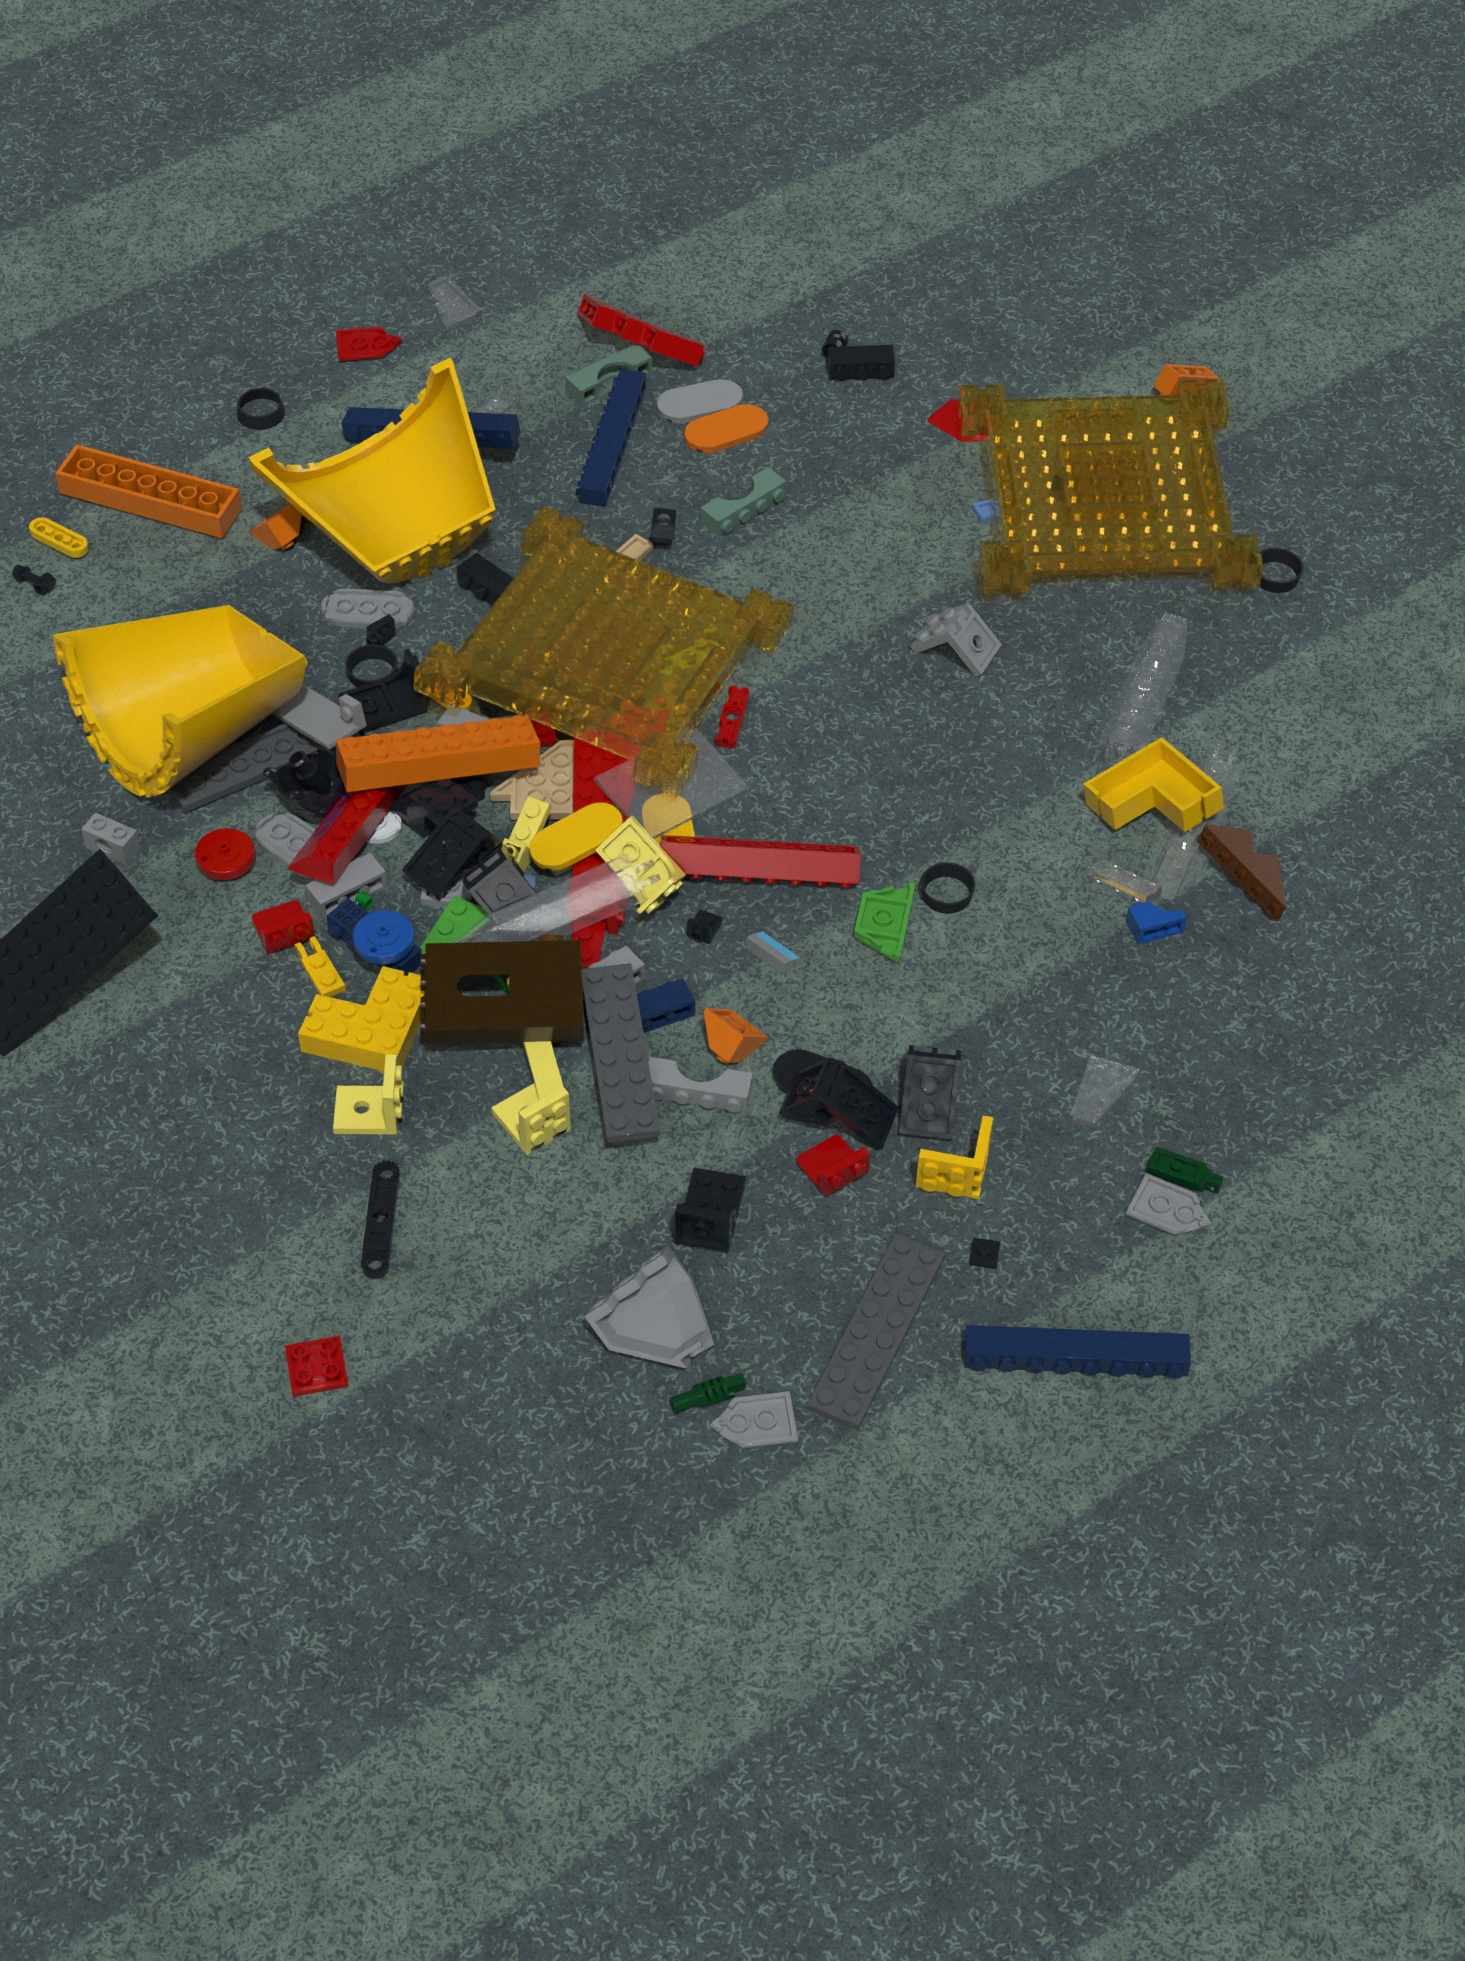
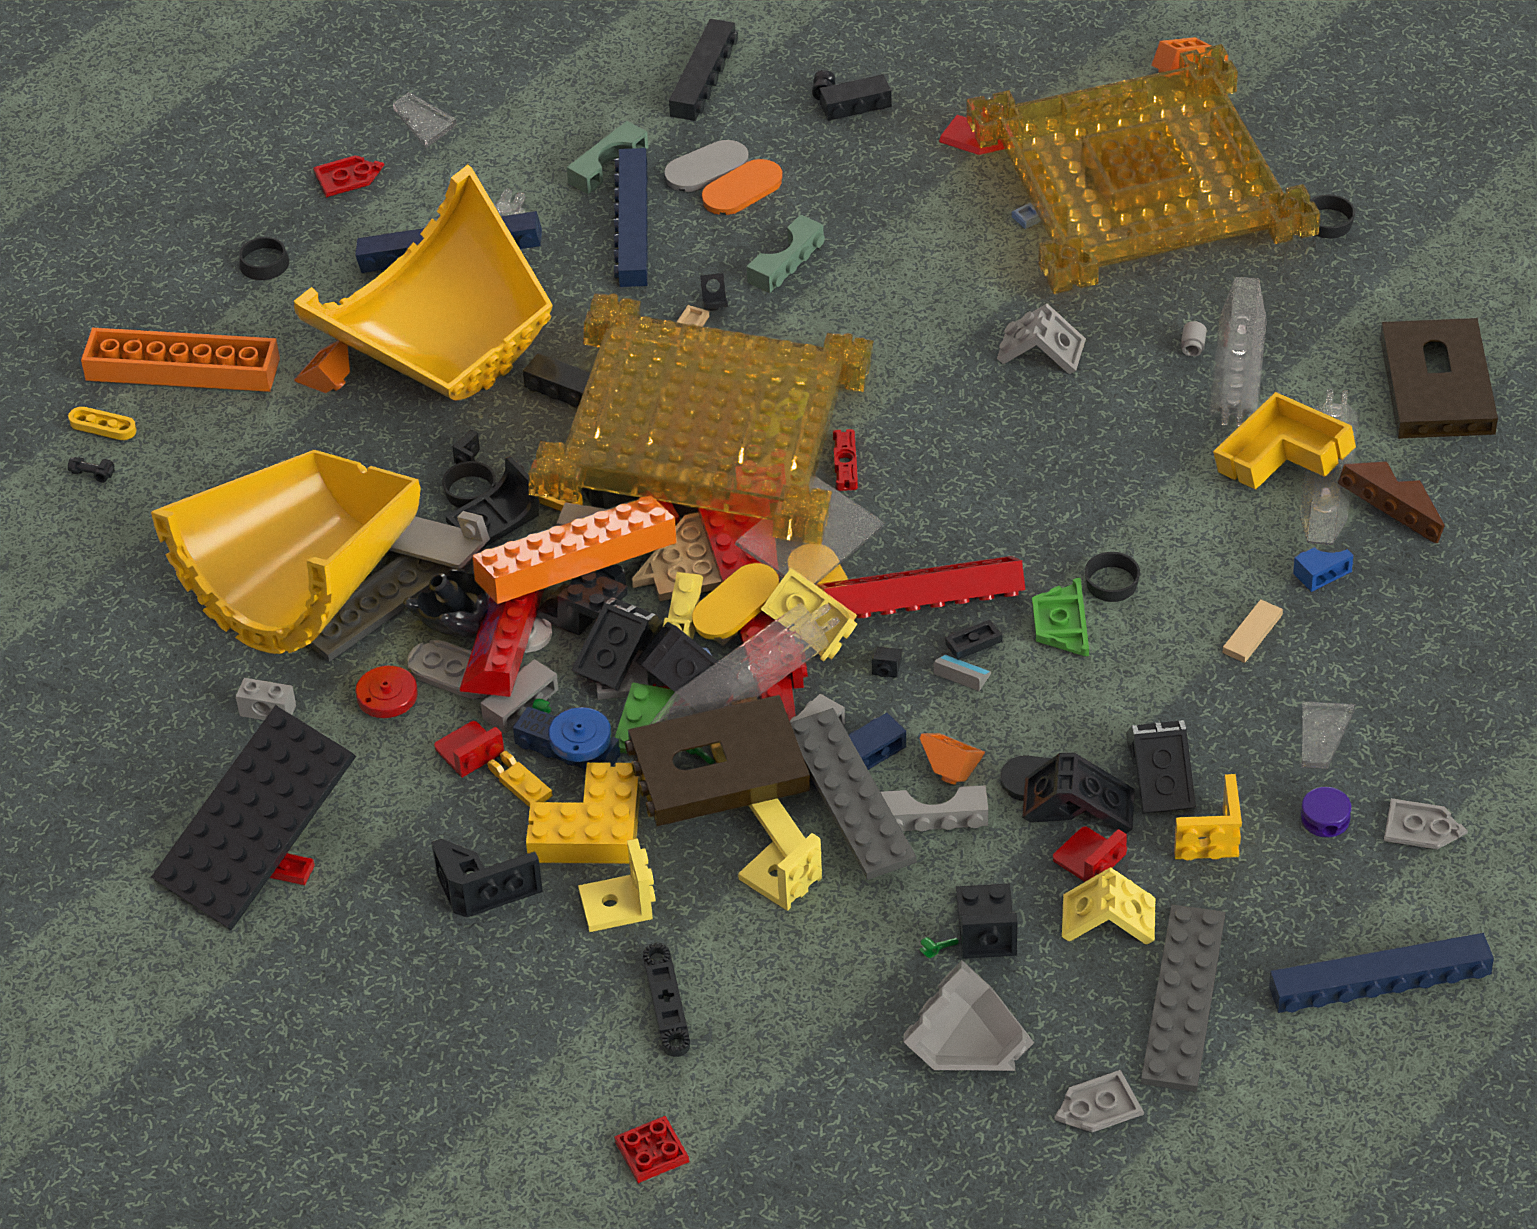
camera: 10 degrees left, 5 degrees down
(79, 1009) = (294, 869): none -> red plate
(248, 1069) = (486, 886): none -> black bracket
(365, 607) = (441, 429): light grey tile -> none
(639, 331) = (624, 108): red arch -> none
(650, 1225) = (931, 948): none -> green hand
(708, 1392) = (1043, 1088): dark green hinge -> none
(729, 304) = (703, 70): none -> black brick
(793, 922) = (973, 639): none -> black plate
(831, 1216) = (1109, 898): none -> light yellow bracket
(984, 1253) = (1262, 904): black plate -> none
(1066, 972) = (1252, 631): none -> tan tile
(1077, 1172) = (1326, 812): none -> dark purple head
(1104, 665) = (1193, 338): none -> light grey brick
(1124, 881) = (1281, 534): clear plate -> none
(1184, 1171) = (1427, 788): dark green hinge -> none
(1324, 779) = (1438, 402): none -> dark brown panel

